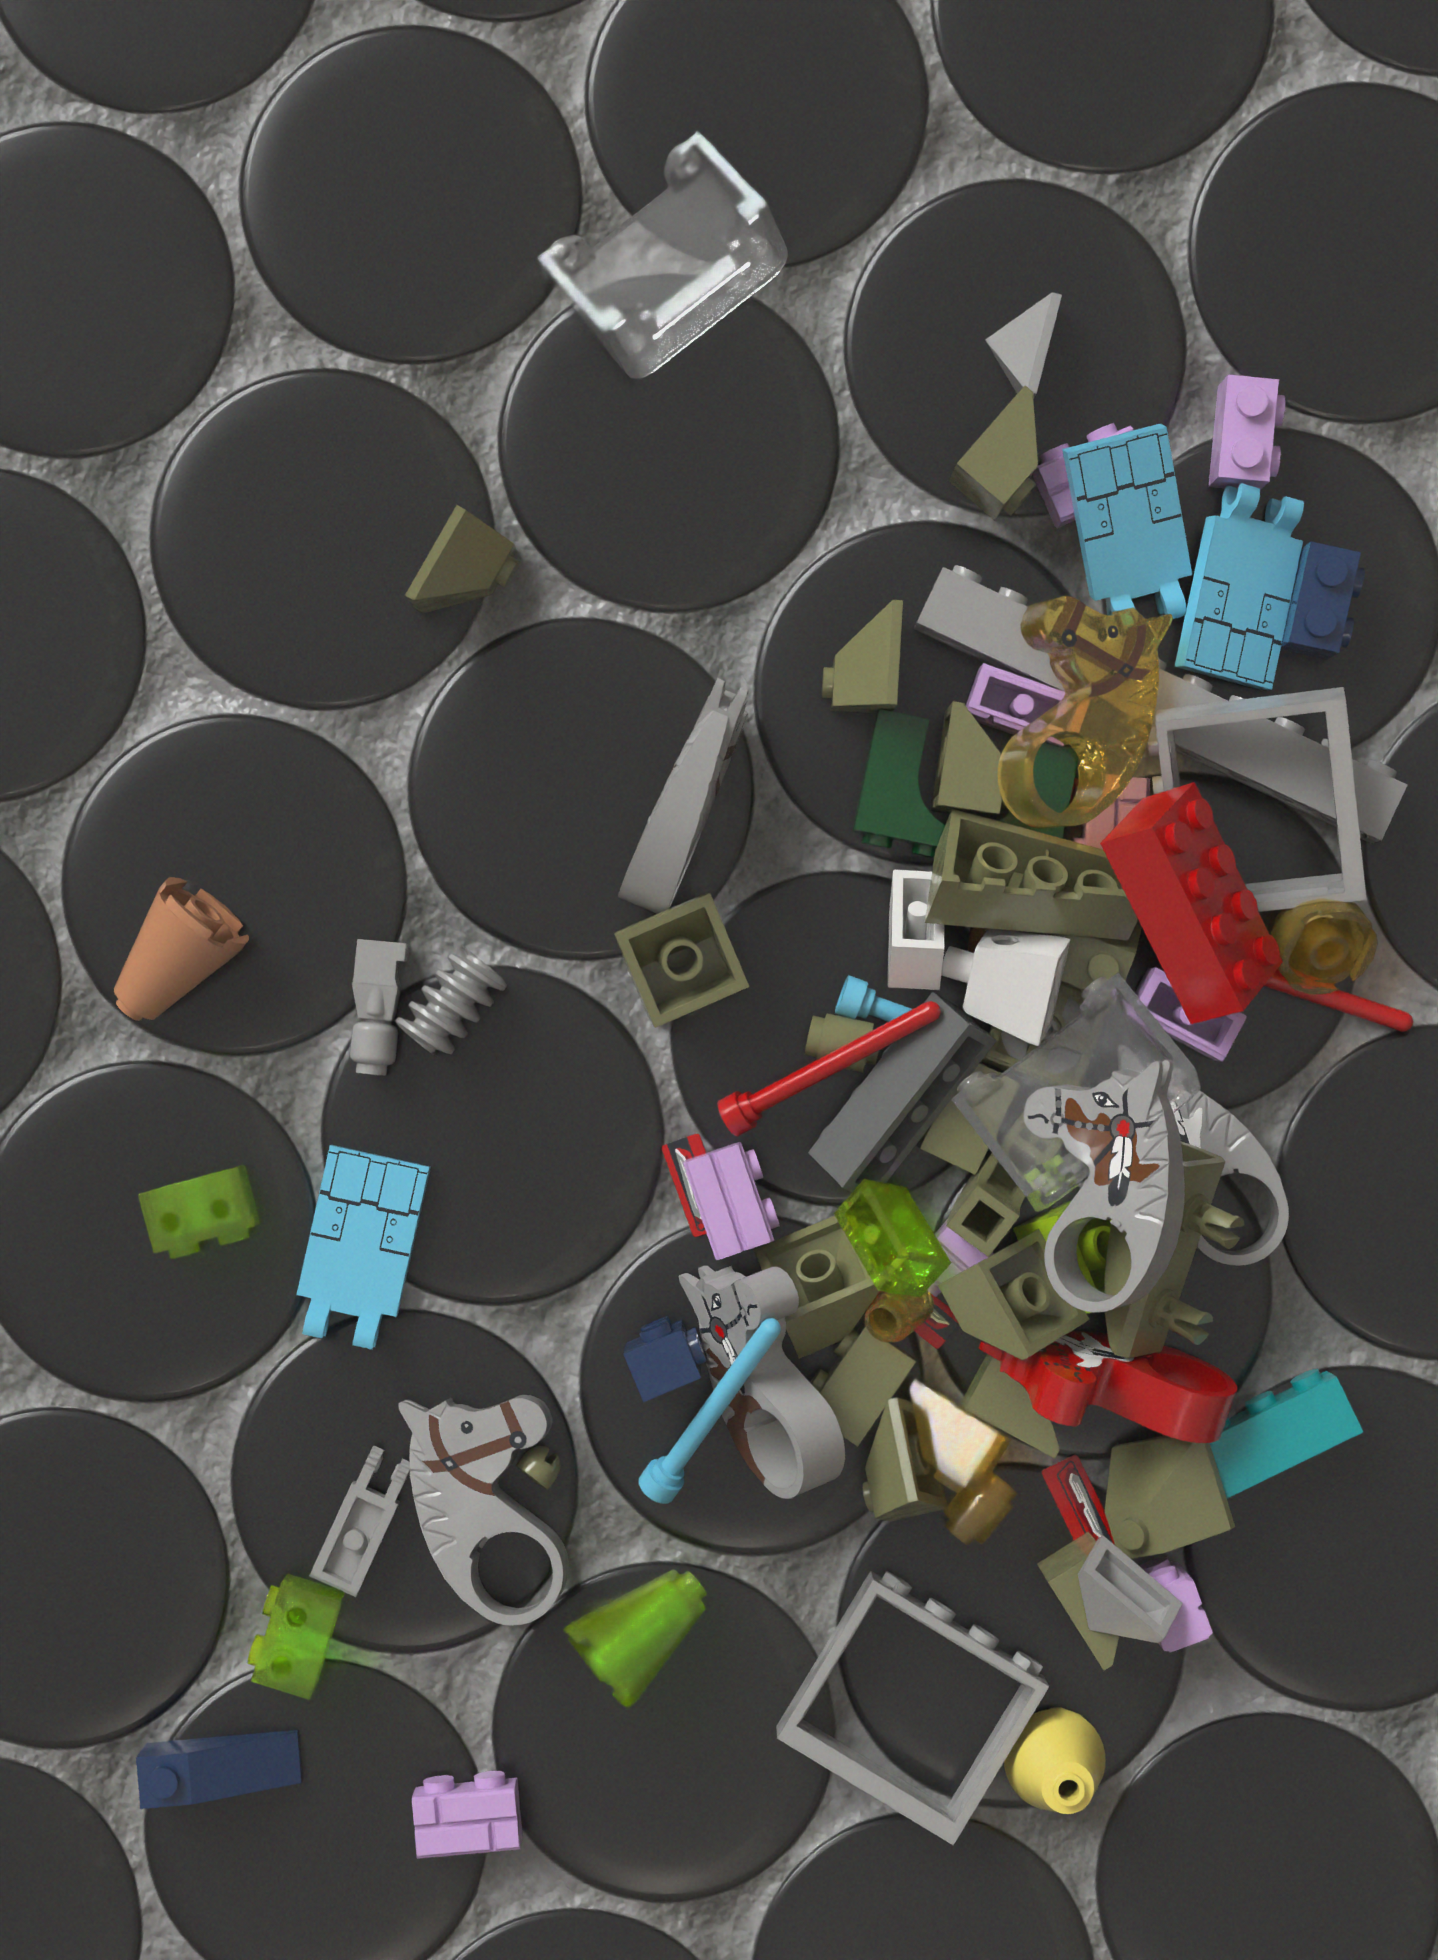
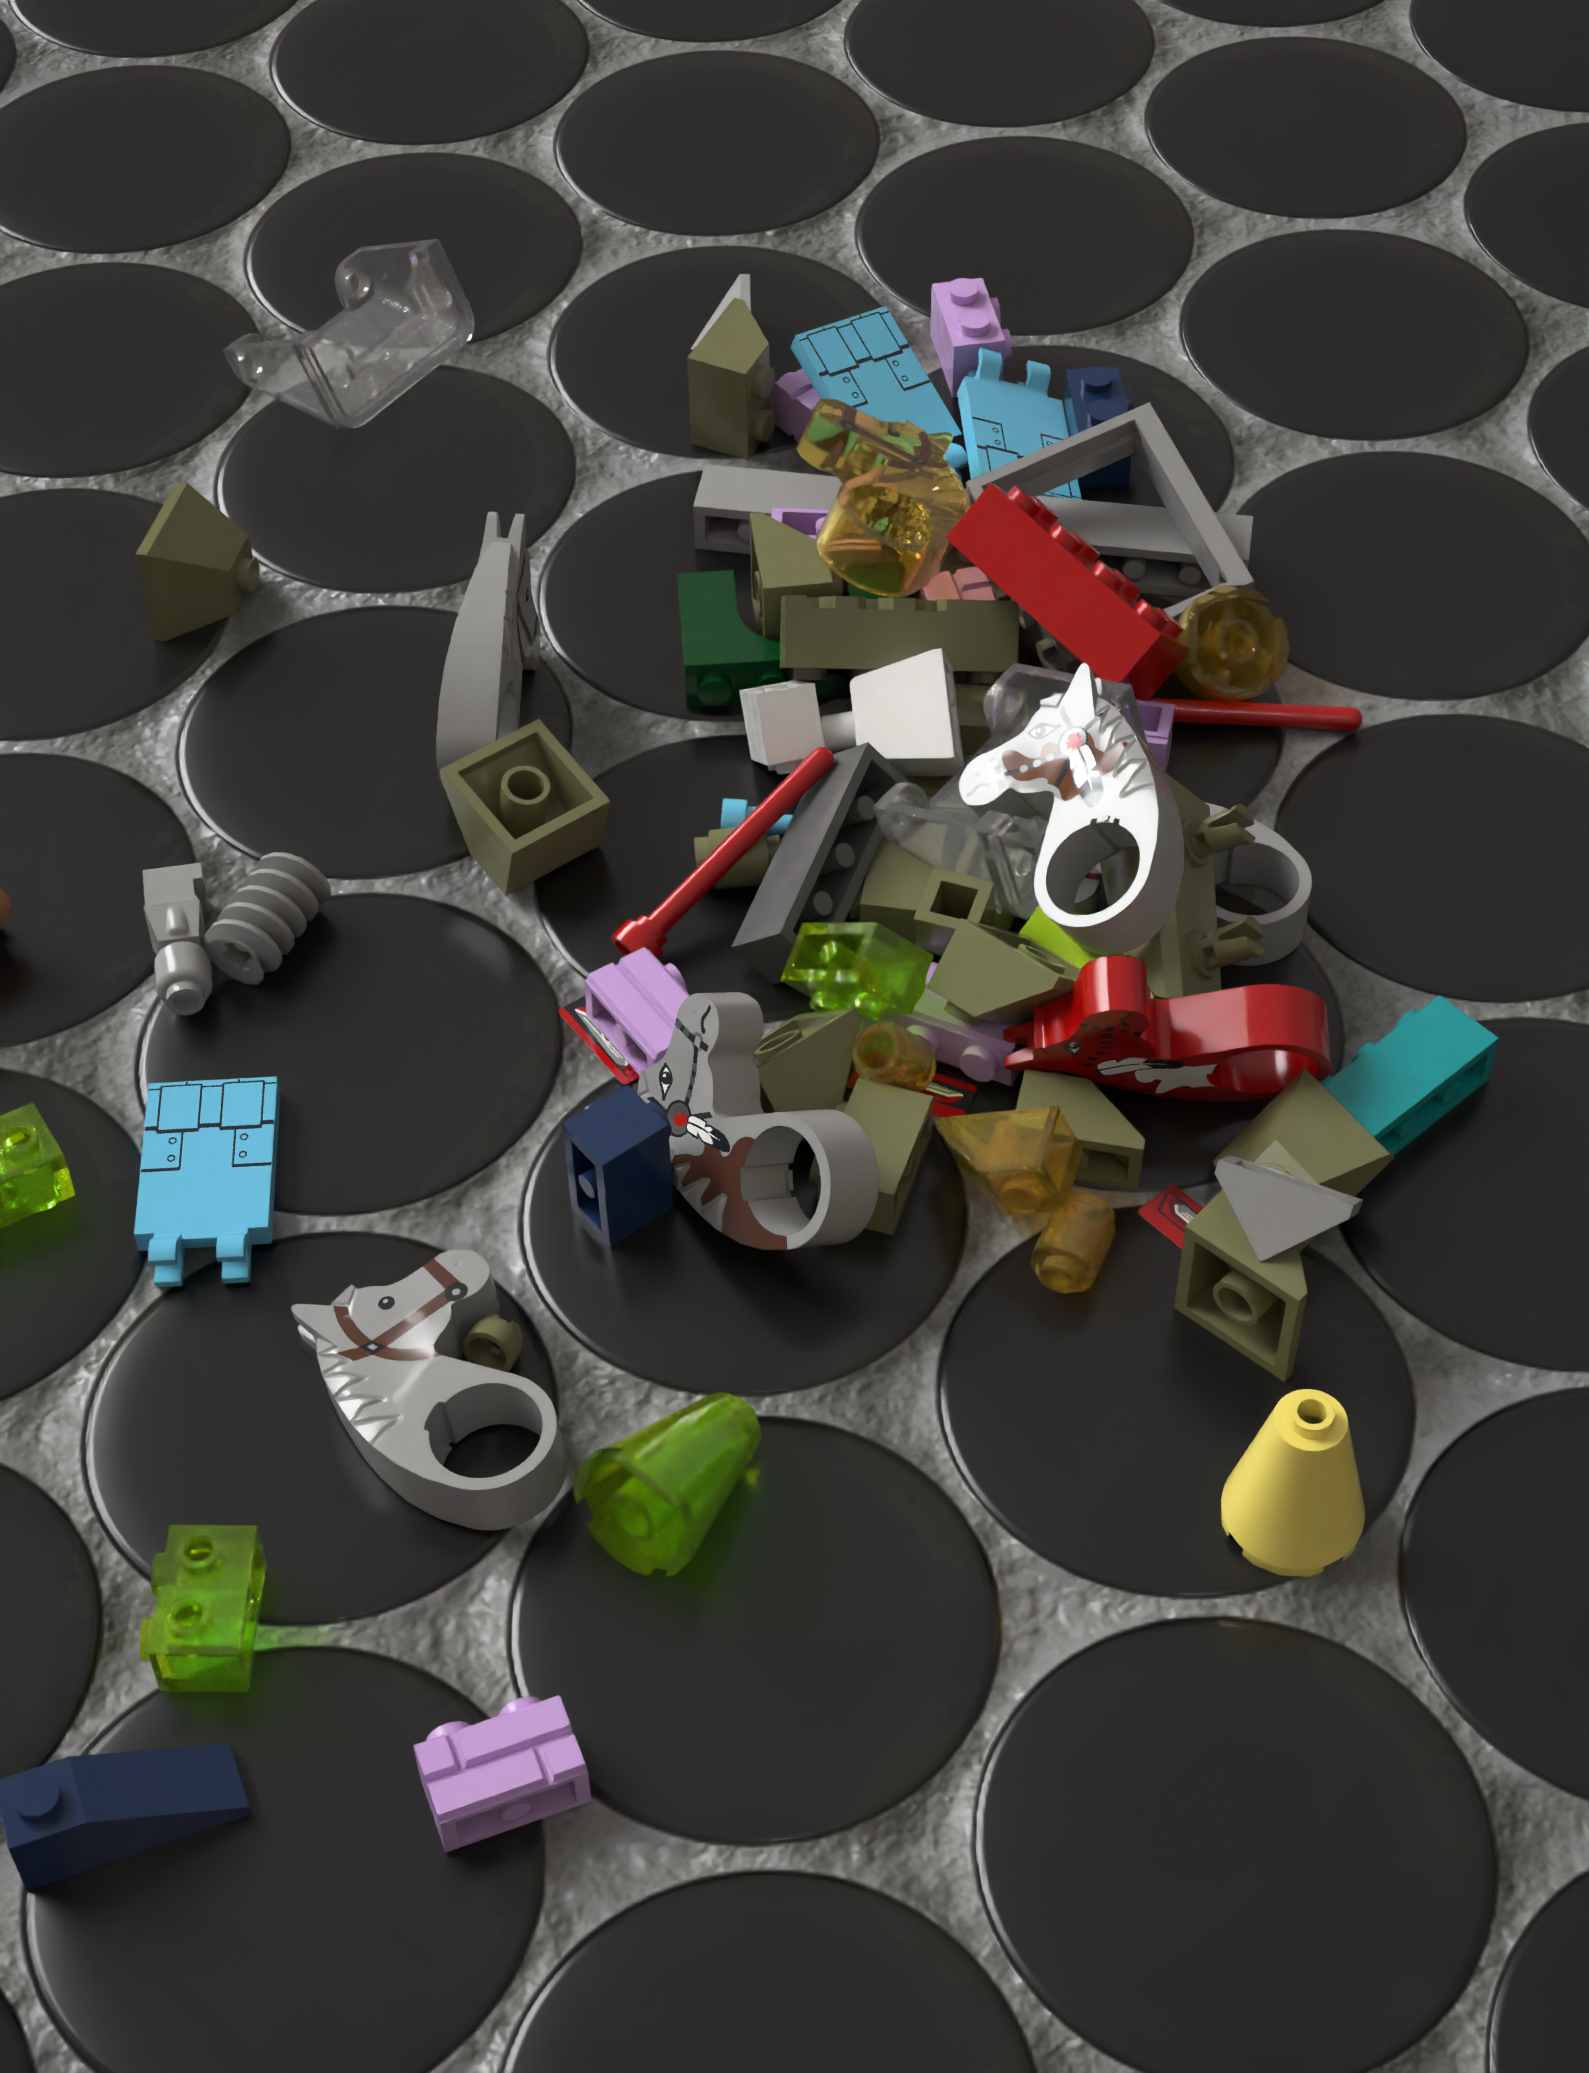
camera: 10 degrees left, 40 degrees down
(359, 1528) = (271, 1461): light grey hinge -> none
(665, 1475) = (662, 1303): medium azure piece -> none
(867, 666) = (653, 549): olive slope -> none
(872, 1778) = (1055, 1573): light grey window -> none
(897, 1475) = (958, 1204): olive slope -> none
(1191, 1621) = (1359, 1266): lavender brick -> none

